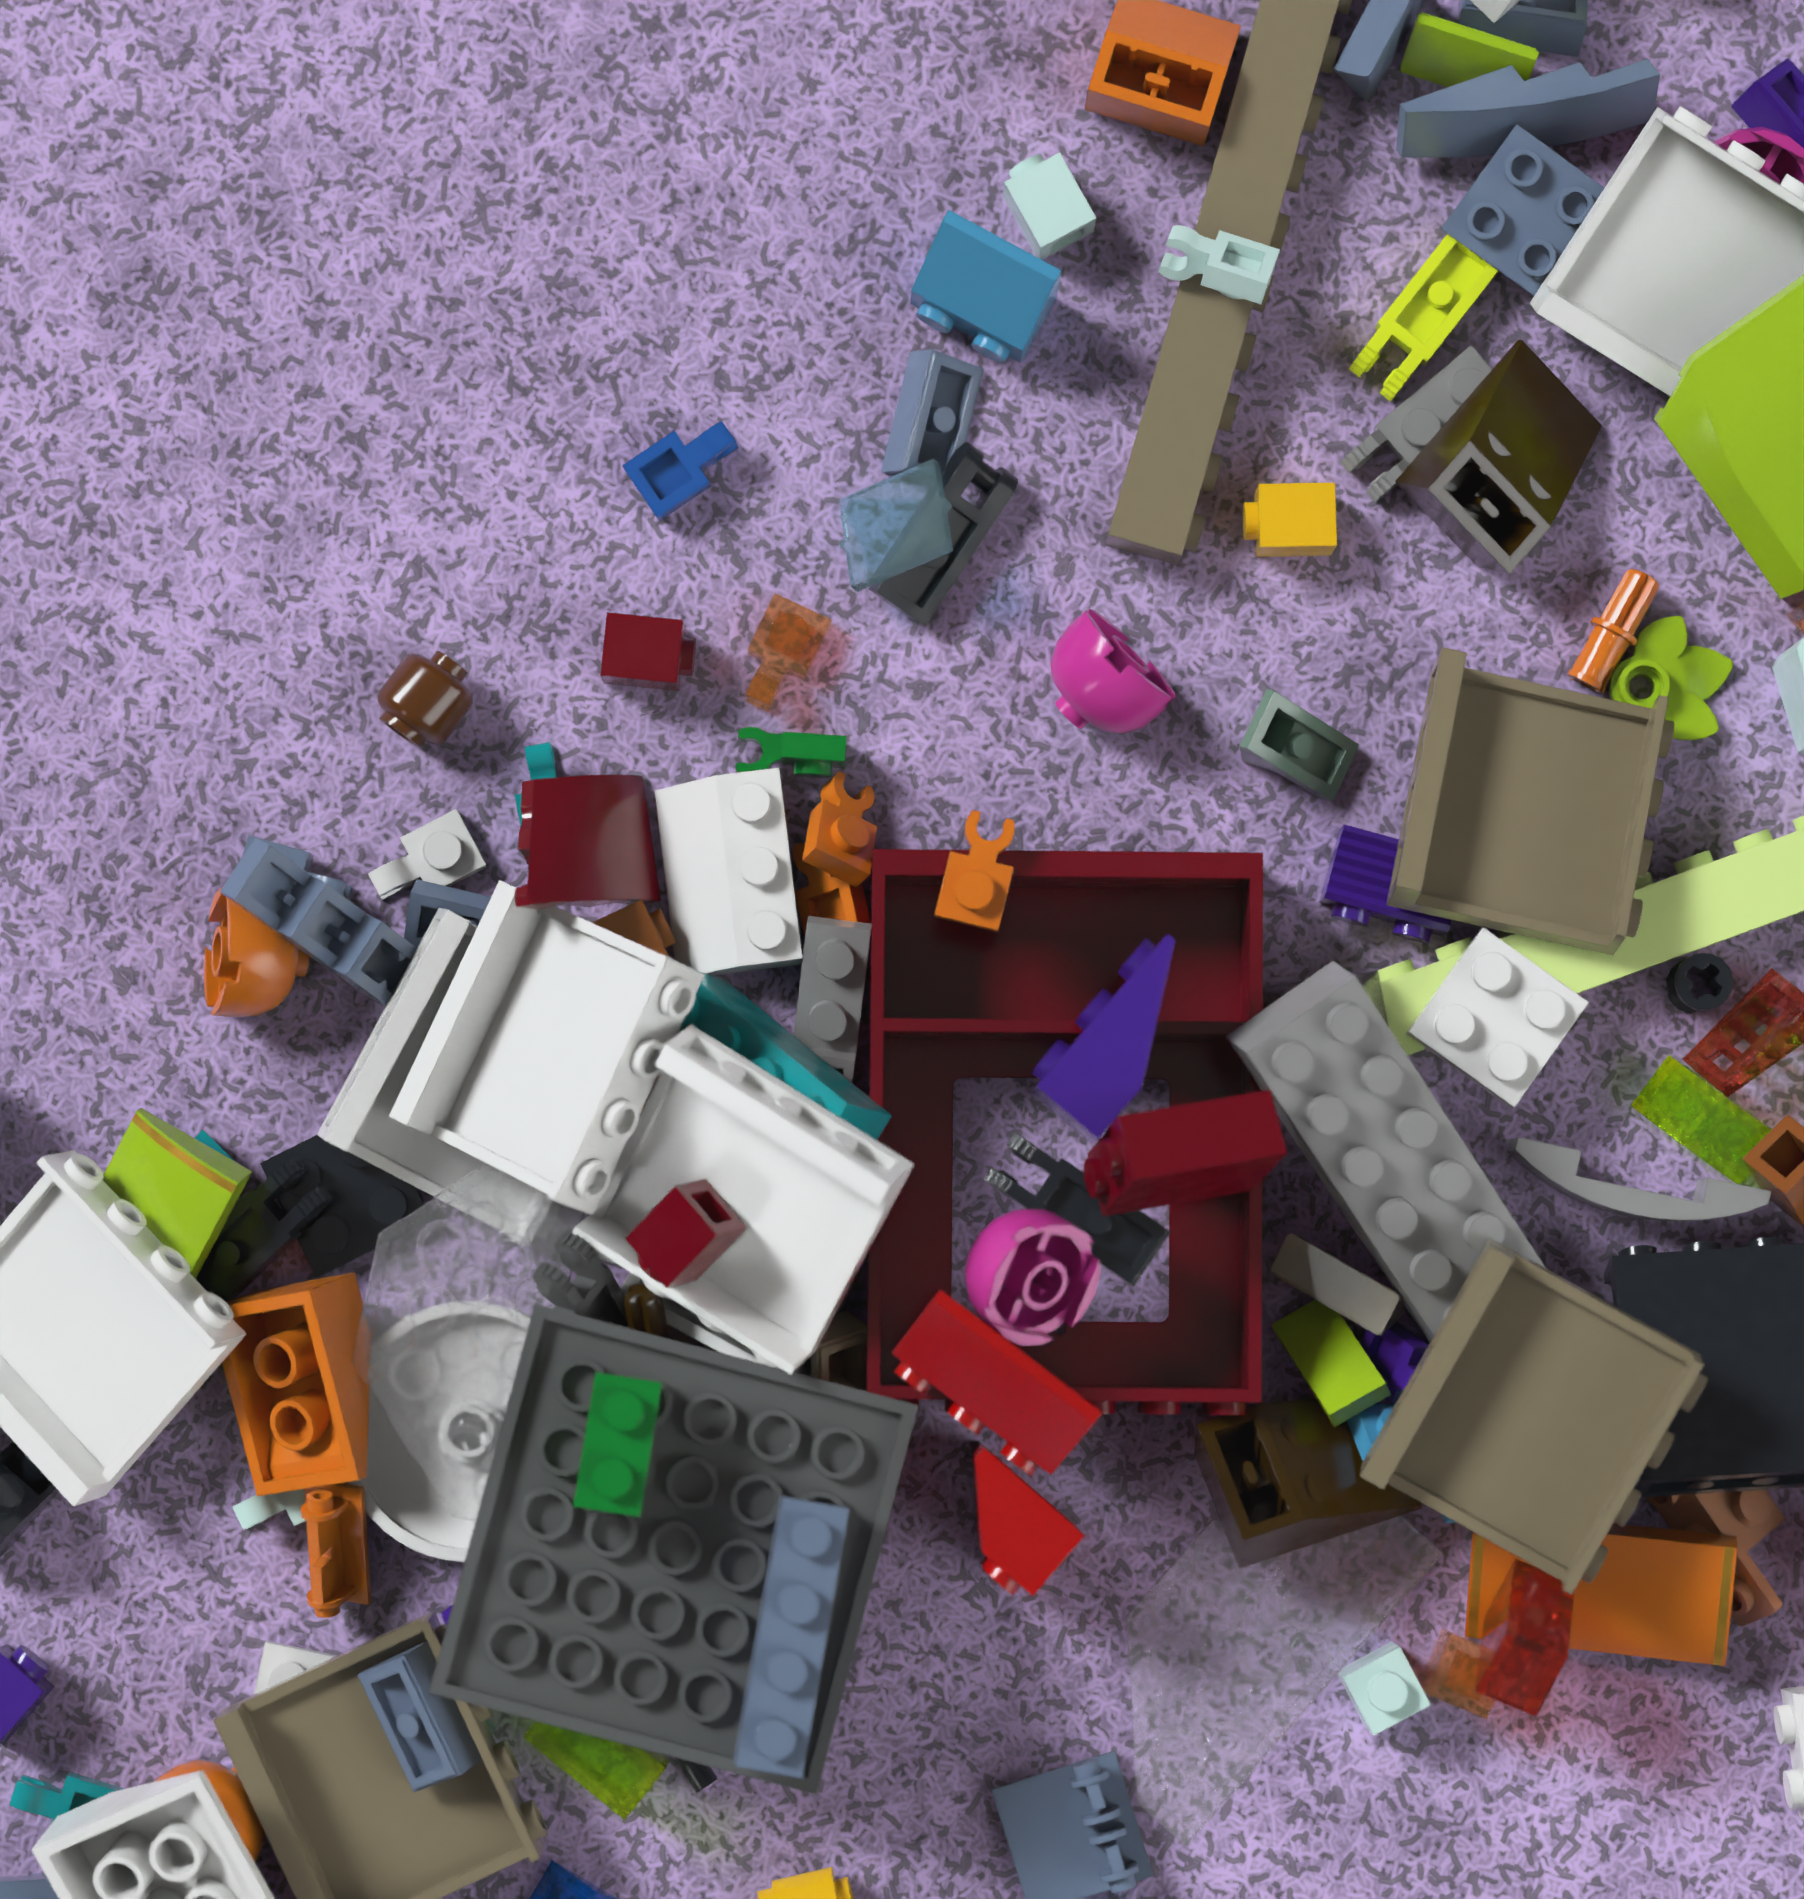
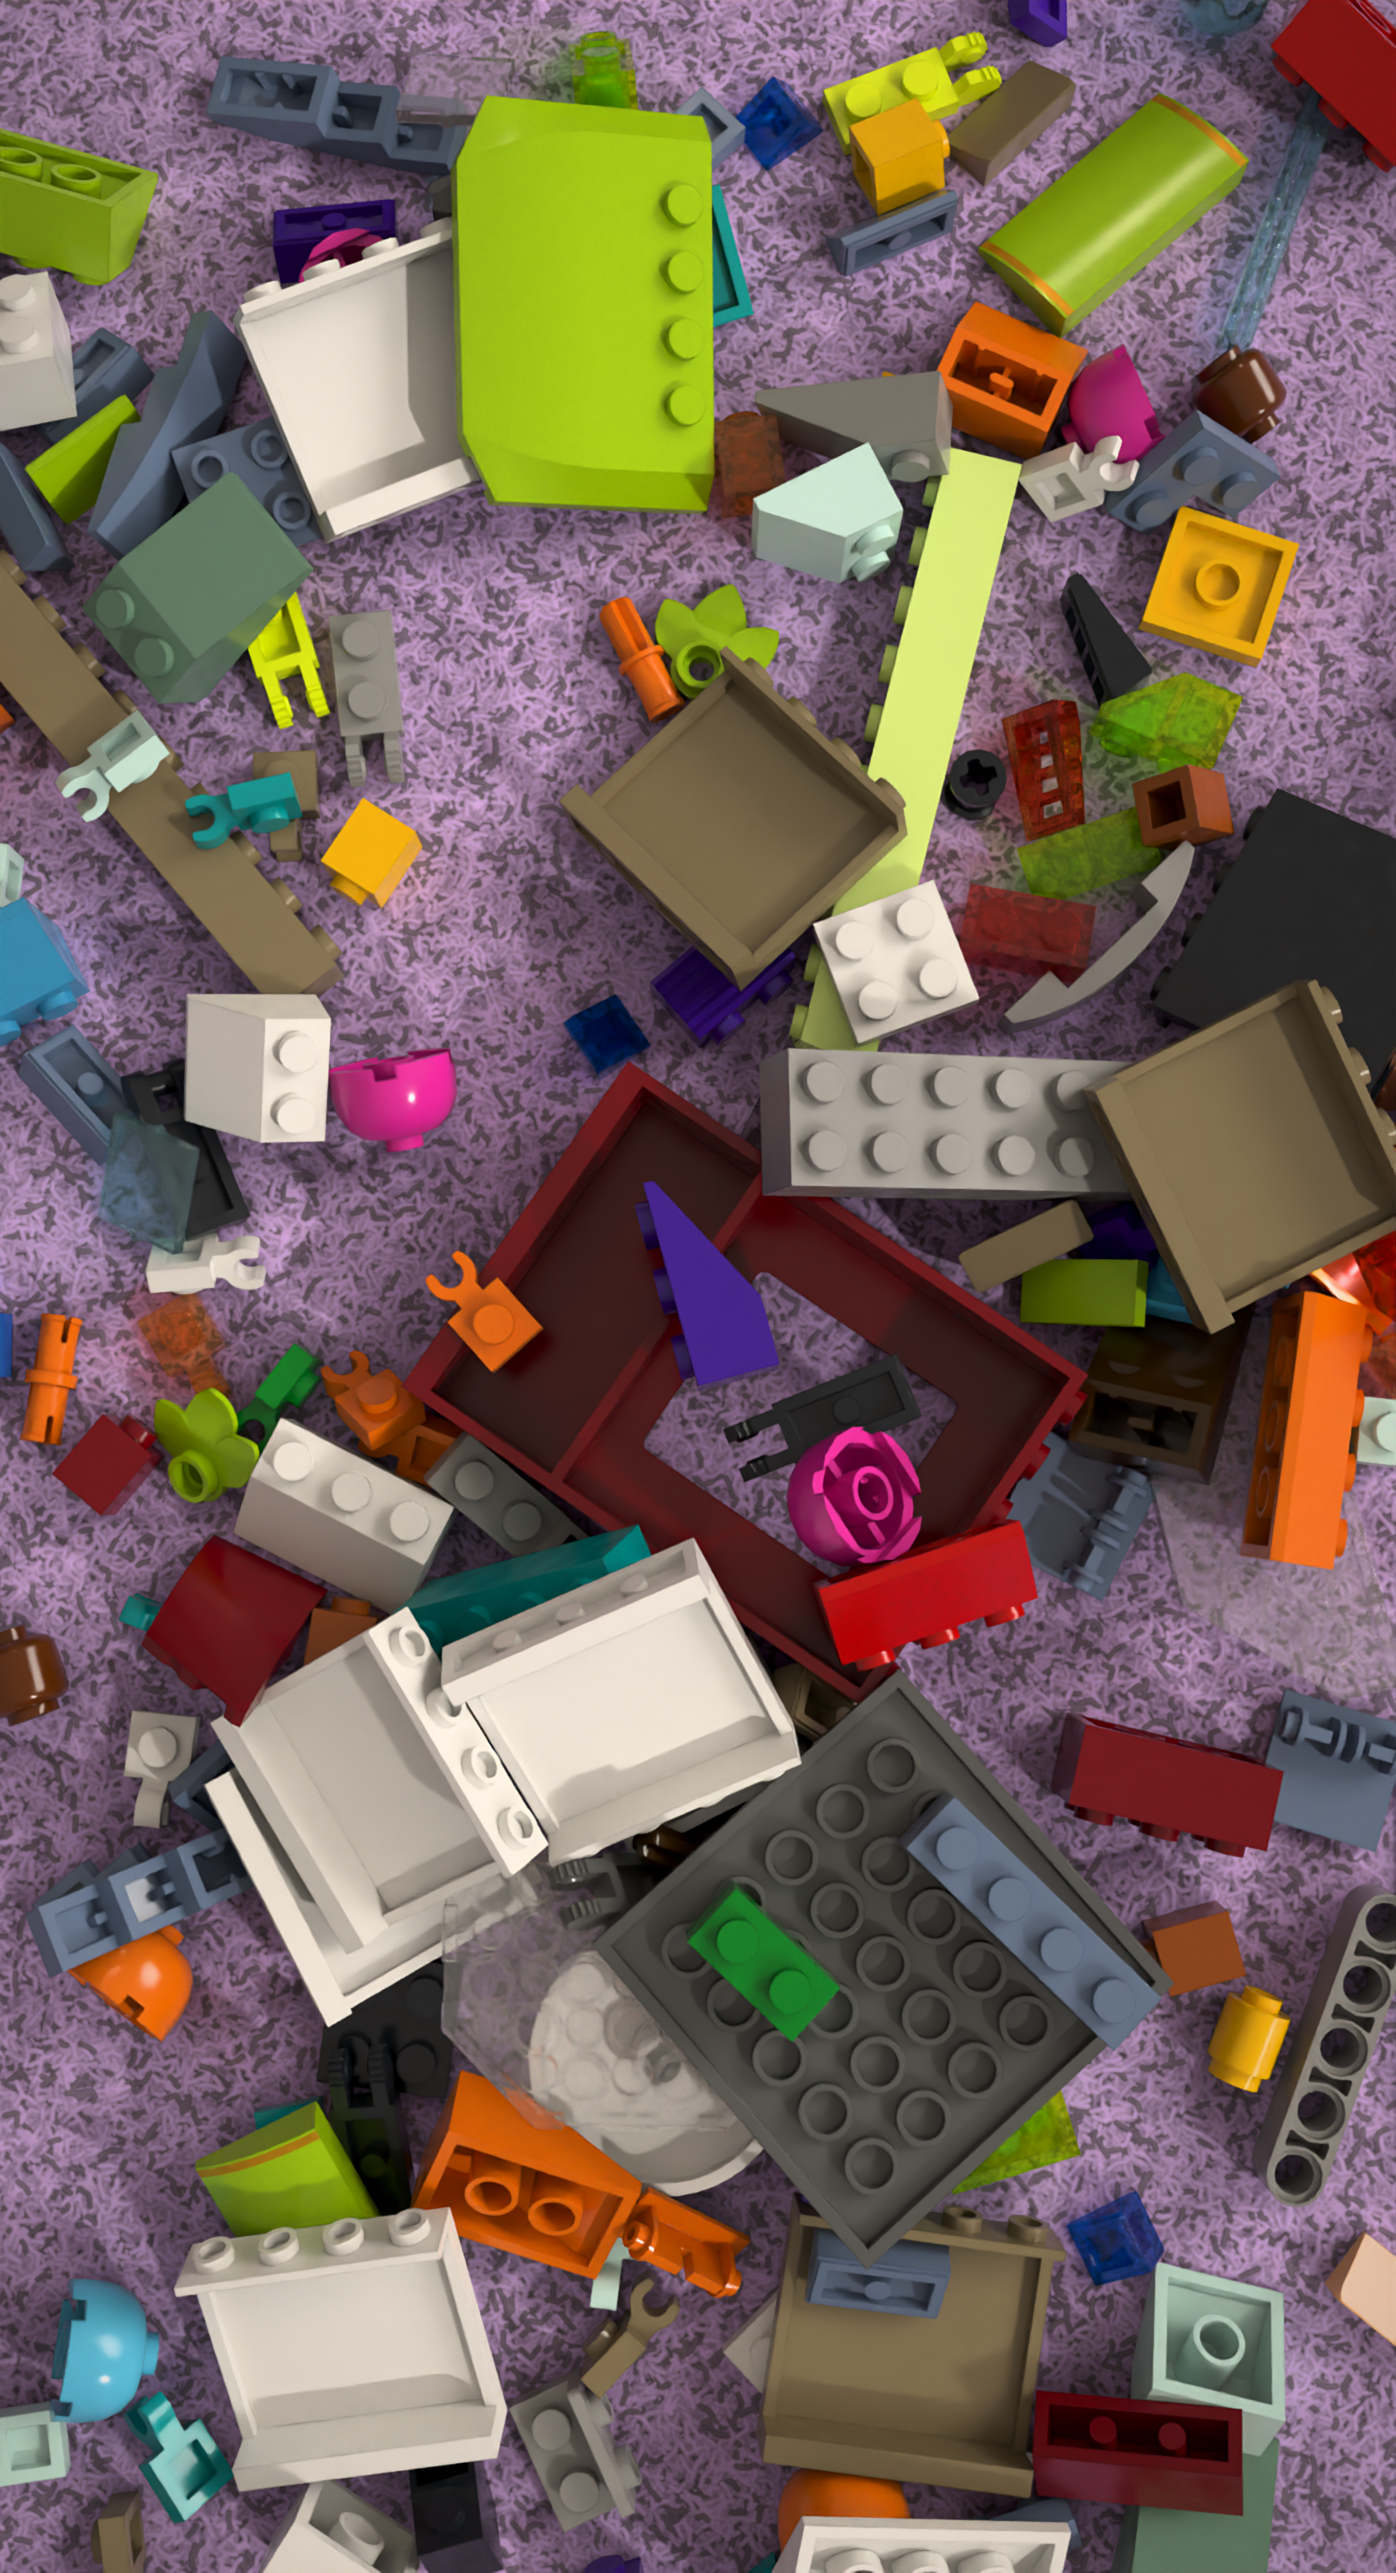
camera: 50 degrees left, 0 degrees up
(107, 1574) = (575, 2450): none -> light grey bracket
(211, 1549) = (618, 2345): none -> dark tan plate
(679, 555) = (51, 1379): none -> orange pin
(685, 1234) = (619, 1773): dark red brick -> none
(711, 720) = (204, 1446): none -> lime plate
(849, 1811) = (1194, 1947): none -> dark orange brick
(861, 615) = (202, 1263): none -> white plate
(968, 1694) = (1165, 1785): none -> dark red brick
(1017, 1526) = (1059, 1647): red slope -> none
(1053, 551) = (257, 1065): none -> white slope
(1140, 1479) = (1080, 1516): none -> sand blue hinge
(1184, 1153) = (840, 1296): dark red brick -> none
(1269, 403) = (256, 805): none -> teal plate
(1275, 818) = (606, 1036): none -> clear blue slope
(1297, 411) = (305, 776): none -> dark tan plate
(1297, 746) = (559, 977): sand green slope -> none
(1339, 1618) = (1306, 1431): none -> orange slope
(1413, 229) = (198, 592): none -> sand green slope
(1503, 461) = (441, 653): dark brown slope -> none
(1600, 1109) = (1025, 932): none -> clear red brick

